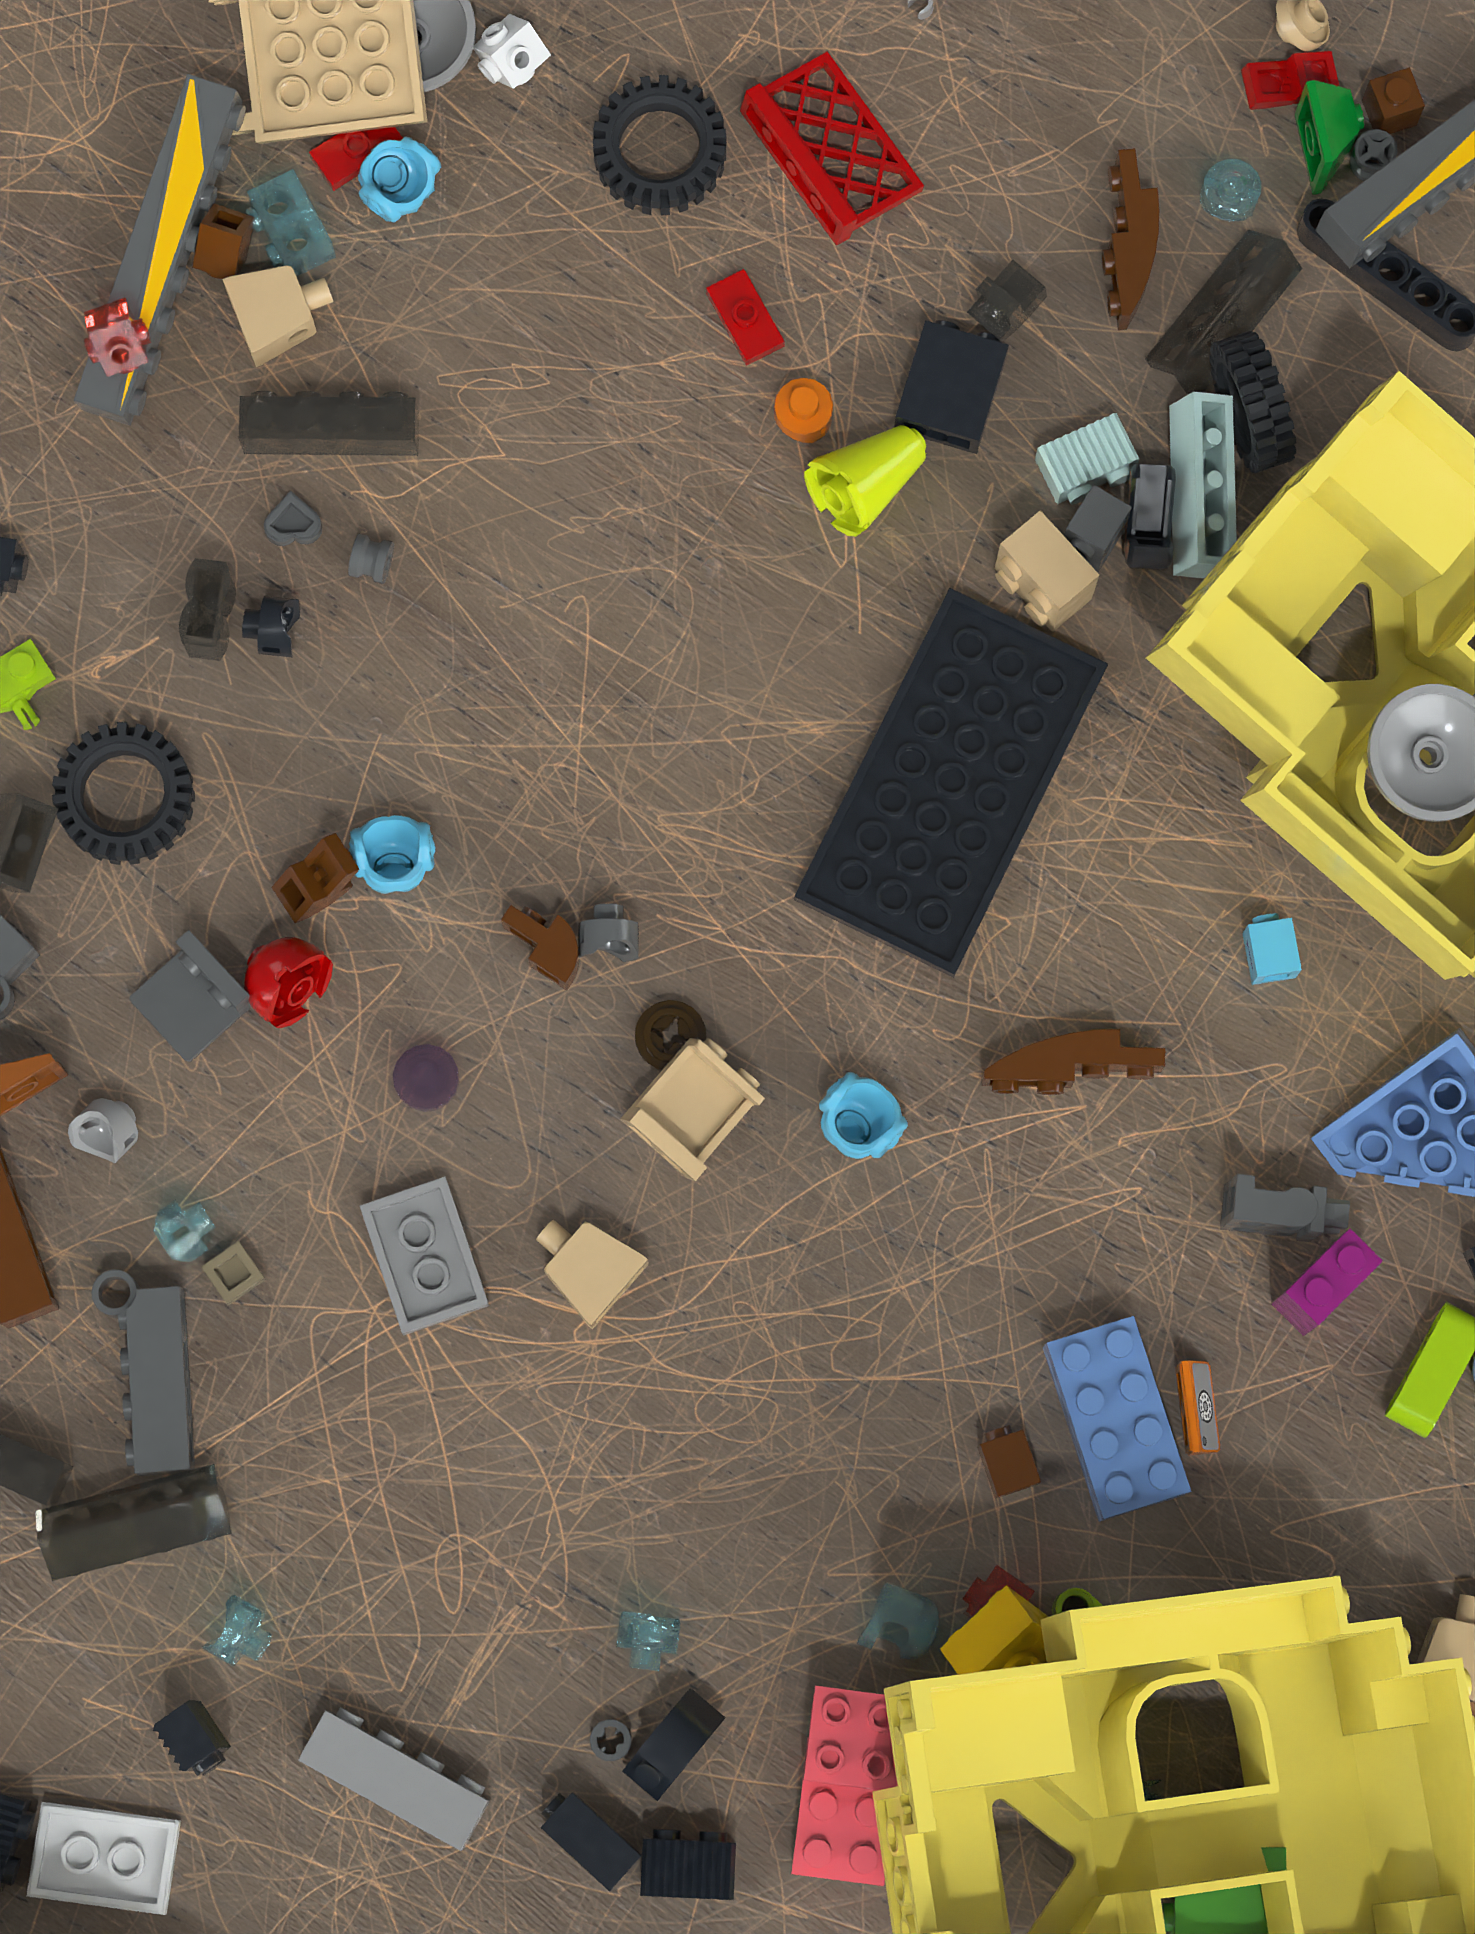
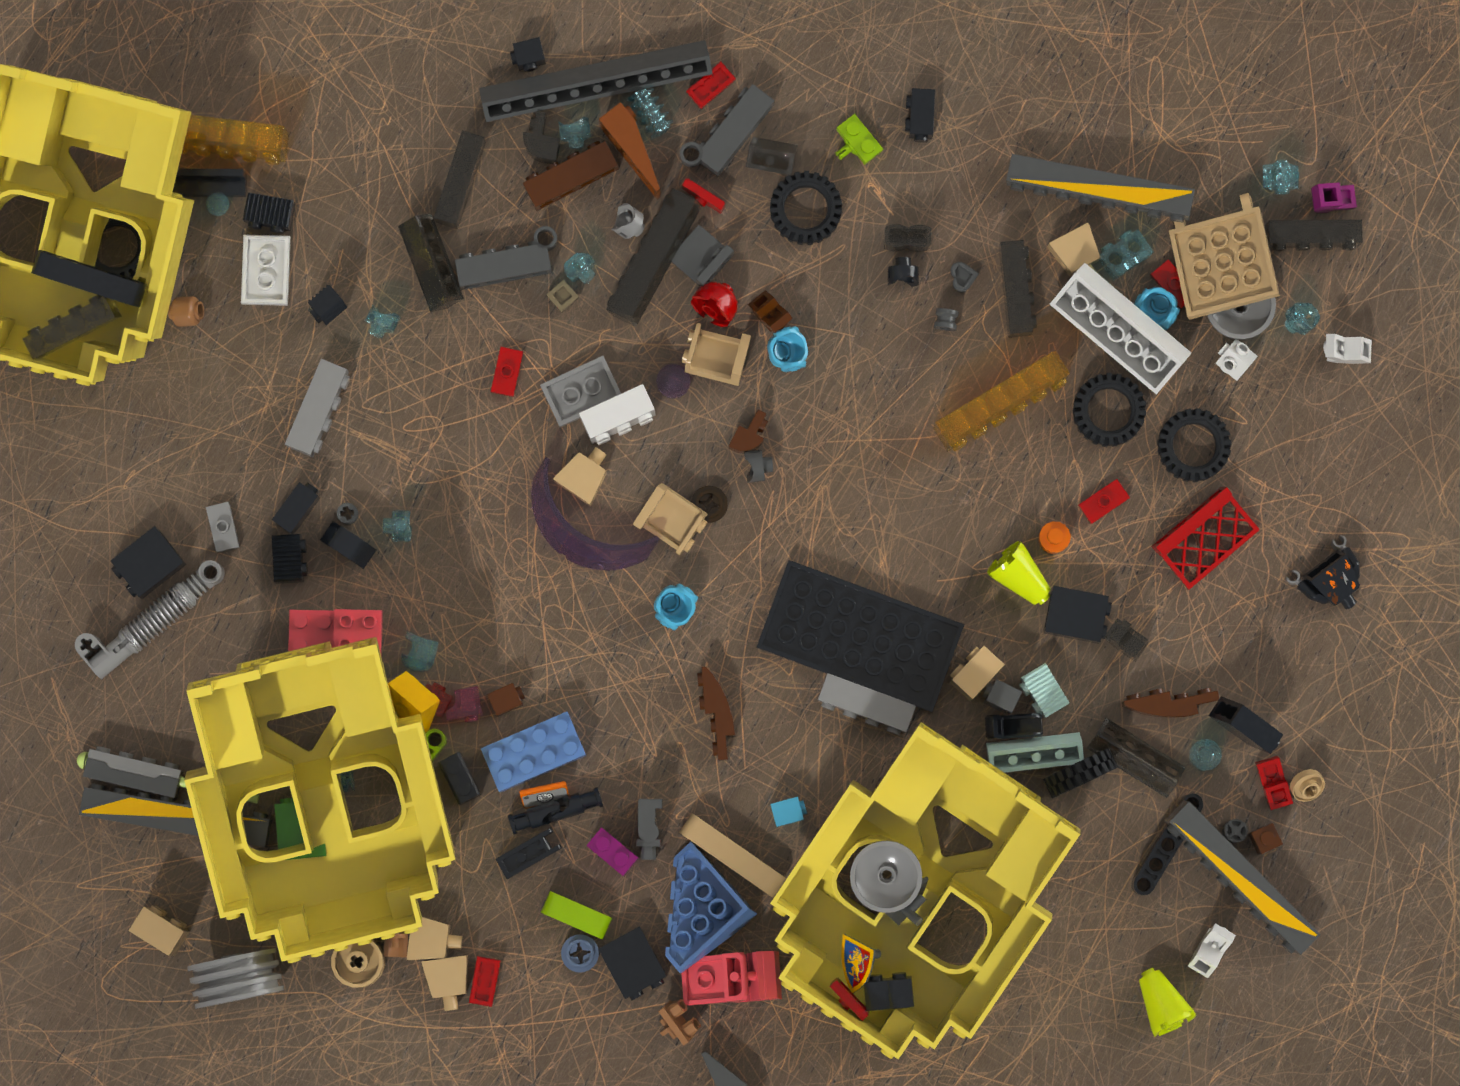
camera: 85 degrees right, 5 degrees up
(75, 982) = (703, 196): none -> red plate
(116, 338) = (1043, 171): clear red brick -> none
(180, 1088) = (653, 257): none -> clear smoke brick
(223, 242) = (1109, 220): reddish brown brick -> none
(367, 1397) = (507, 371): none -> red plate
(387, 988) = (716, 355): none -> tan panel
(429, 242) = (1120, 328): none -> white brick
(481, 1186) = (618, 415): none -> white brick
(539, 469) = (1001, 401): none -> clear yellow brick
(576, 238) = (1120, 384): none -> black tyre
(713, 1308) = (572, 543): none -> clear purple windscreen
(1014, 1540) = (466, 705): none -> clear pink brick
(1080, 782) = (866, 703): none -> light grey brick
(1155, 1568) = (459, 778): none -> black brick
(1188, 103) = (1246, 725): none -> black brick
(1236, 1410) = (550, 812): none -> black piece
(1311, 1453) = (526, 854): none -> black hinge
(1327, 129) = (1244, 805): green slope -> none
(1345, 1062) = (732, 855): none -> tan beam

